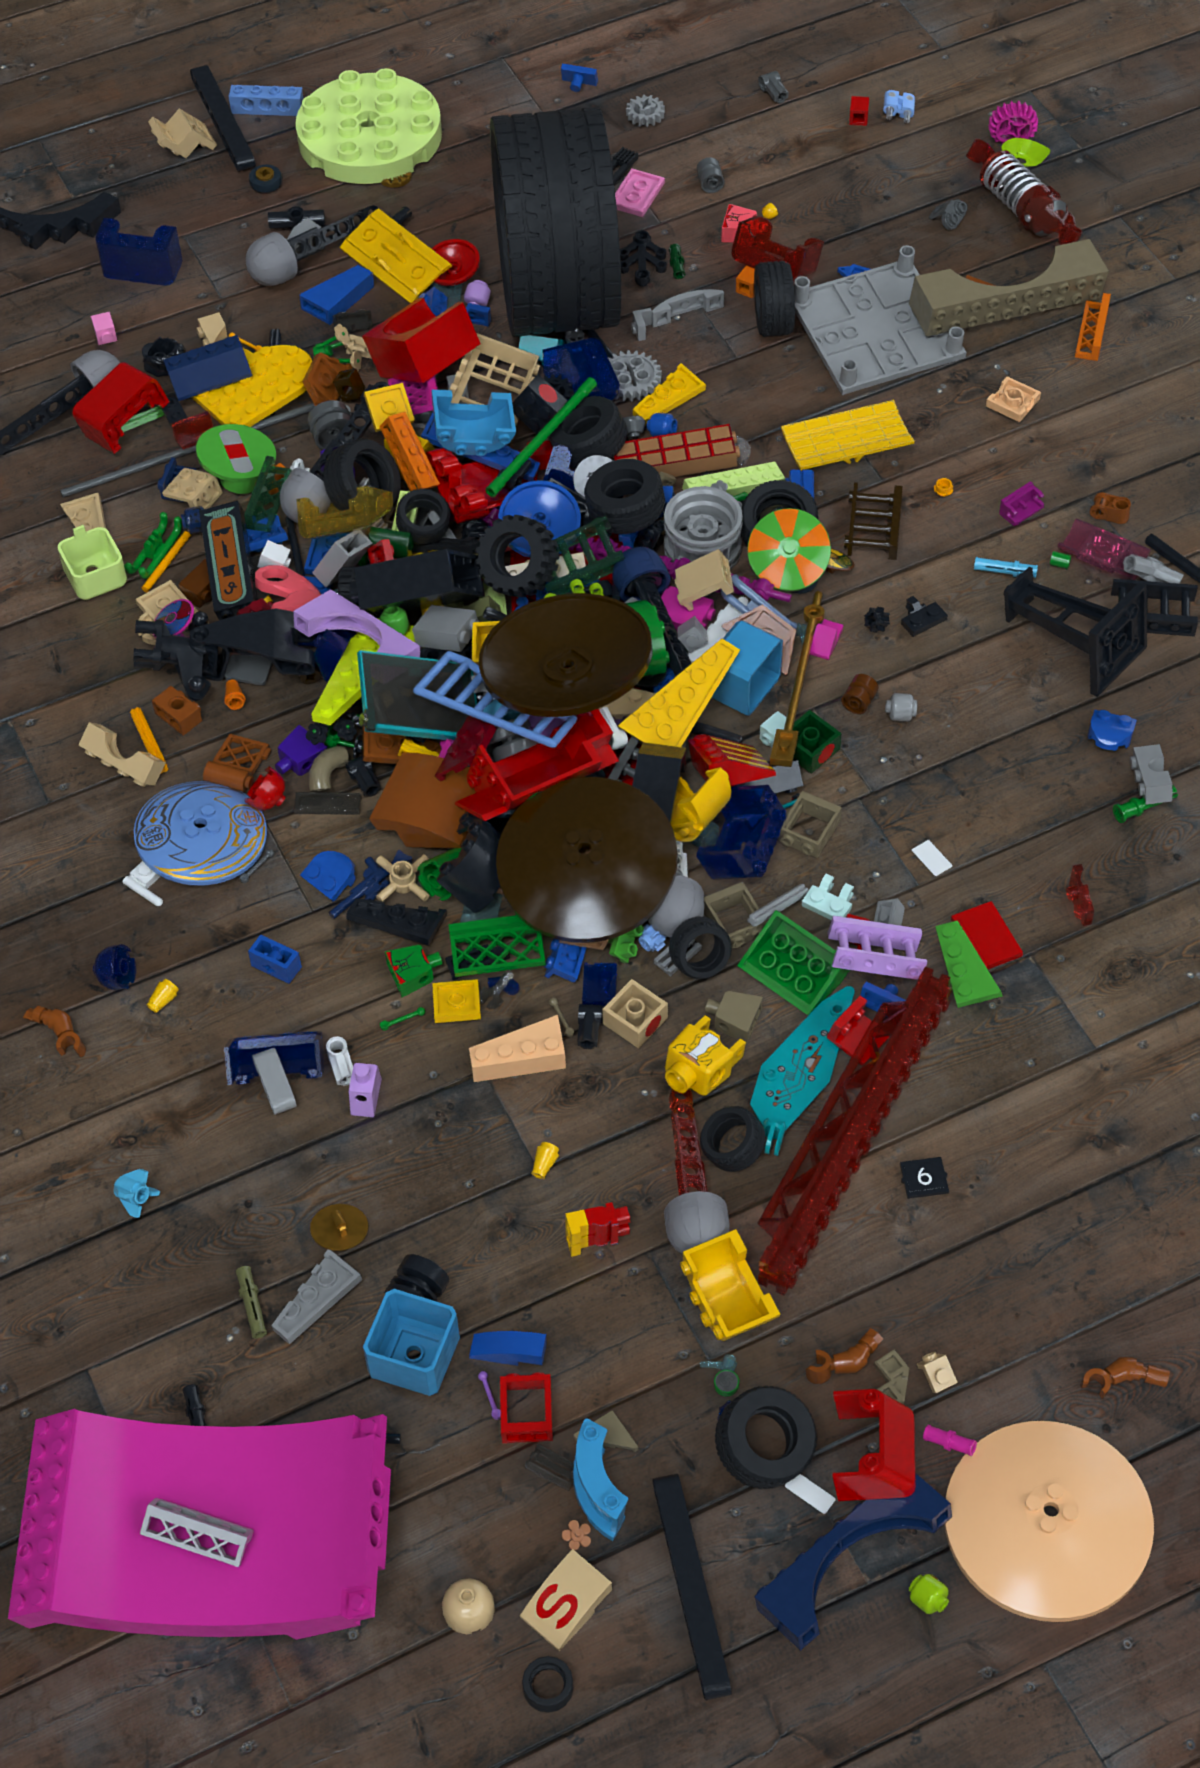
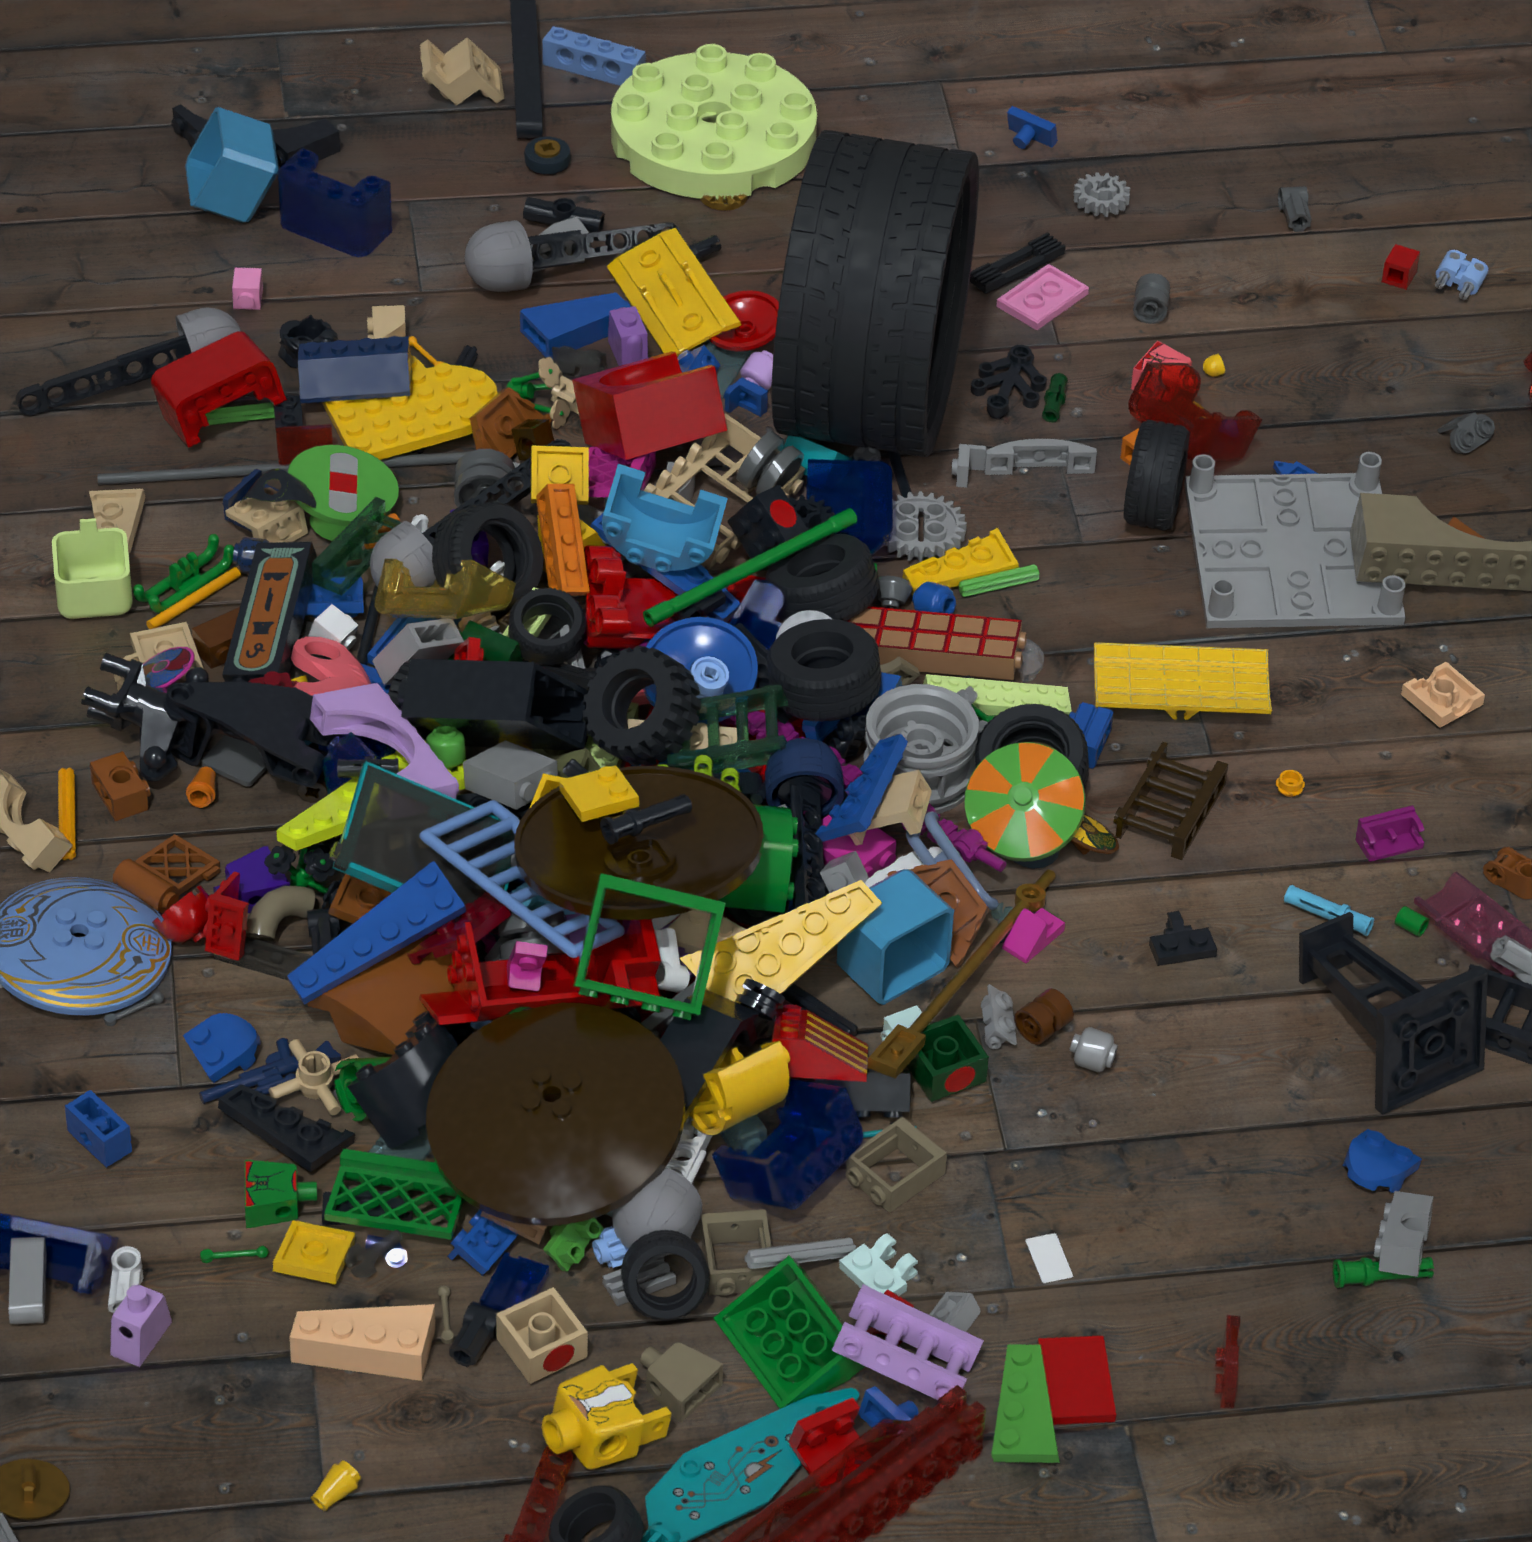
camera: 15 degrees right, 10 degrees down
(58, 243) = (231, 165): none -> dark azure plate
(207, 467) = (291, 488): none -> black piece
(299, 785) = (226, 920): none -> red bracket
(349, 651) = (353, 767): none -> black pin
(380, 296) = (627, 335): none -> medium lavender torso
(420, 756) = (395, 922): none -> blue wing
(516, 361) = (769, 464): none -> dark grey wheel
(518, 761) = (526, 965): none -> dark pink slope
(523, 627) = (599, 793): none -> yellow plate
(555, 522) = (710, 676): none -> light blue wheel
(559, 642) = (634, 821): none -> black pin
(648, 727) = (663, 895): none -> green window
(682, 738) = (761, 999): none -> black wheel
(688, 574) = (866, 790): none -> blue wing
(696, 399) = (998, 580): none -> bright green axle
(827, 697) = (999, 1018): none -> light grey hinge
(876, 619) = (1113, 927): black gear -> none

